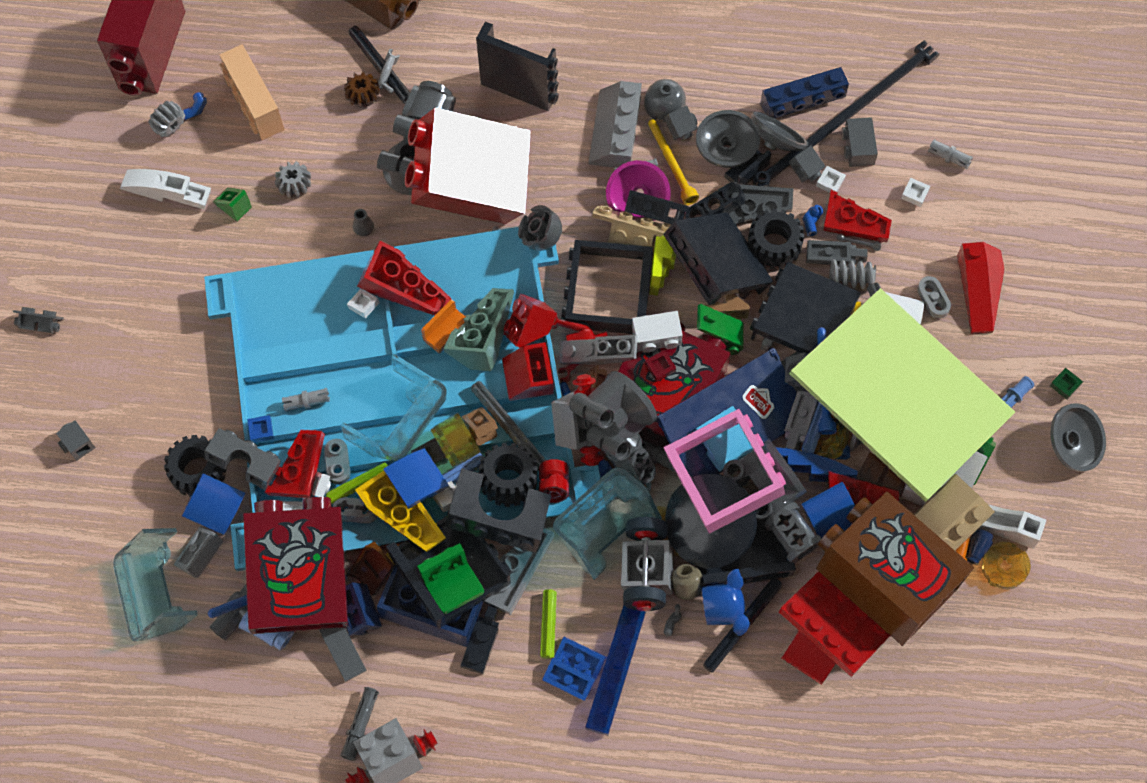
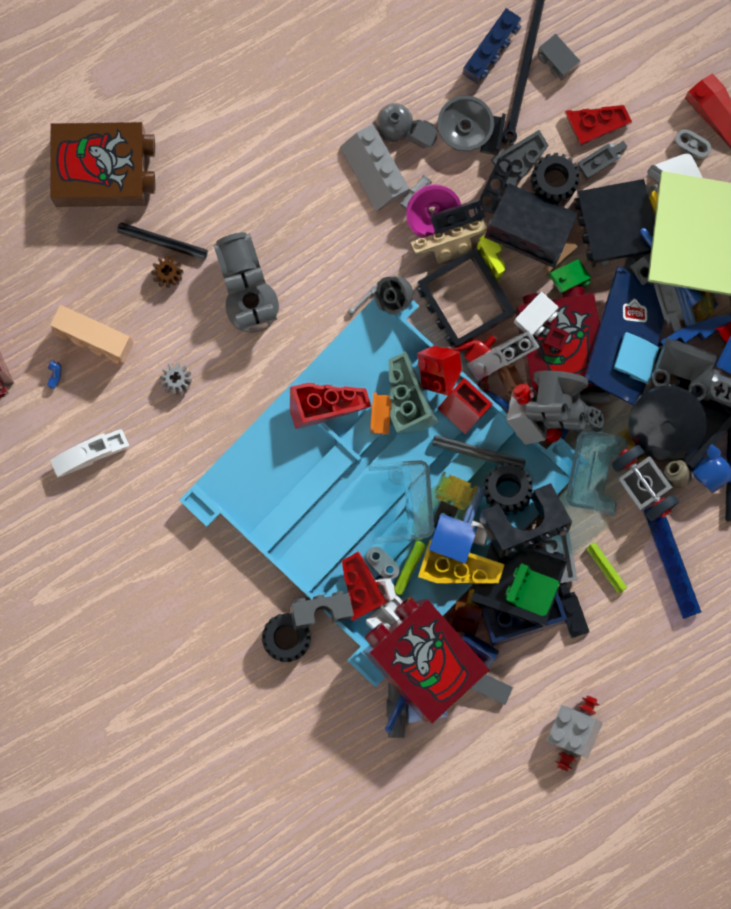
camera: 40 degrees left, 15 degrees up
(28, 318) = (74, 618): dark grey hinge -> none
(74, 440) = (185, 681): dark grey brick -> none
(144, 586) = (325, 747): clear light blue windscreen -> none
(166, 118) = (45, 399): light grey gear -> none
(198, 552) = (334, 692): light grey slope -> none
(213, 504) = (322, 654): blue slope -> none
(233, 202) = (145, 427): green slope -> none
(260, 429) = (312, 580): blue plate -> none
(305, 399) = (326, 536): light grey pin -> none
(355, 510) = (425, 592): light grey beam -> none
(359, 723) = (536, 724): dark grey pin -> none
(362, 223) = (254, 381): dark grey cone -> none
(363, 303) = (308, 437): white plate -> none
(390, 61) = (175, 244): light grey piece -> none
(468, 166) = (308, 283): brick -> none
(480, 426) = (460, 466): medium nougat slope -> none
(517, 70) = (280, 182): black panel -> none
(554, 479) = (541, 470): red wheel -> none
(574, 668) = (645, 584): blue slope -> none
(672, 620) = (684, 506): dark grey piece -> none
(688, 194) = (466, 185): yellow piece -> none
(747, 504) = (668, 352): bright pink window -> none
(777, 133) = (499, 93): dark grey dish -> none
(807, 164) = (535, 103): dark grey brick -> none
(811, 218) = (565, 143): blue arm -> none
(830, 180) = (559, 102): white plate -> none
(852, 274) = (626, 166): light grey piece -> none
(876, 245) = (625, 131): flat silver hinge -> none
(915, 192) = (624, 70): white plate -> none
(950, 154) = (627, 21): light grey pin -> none

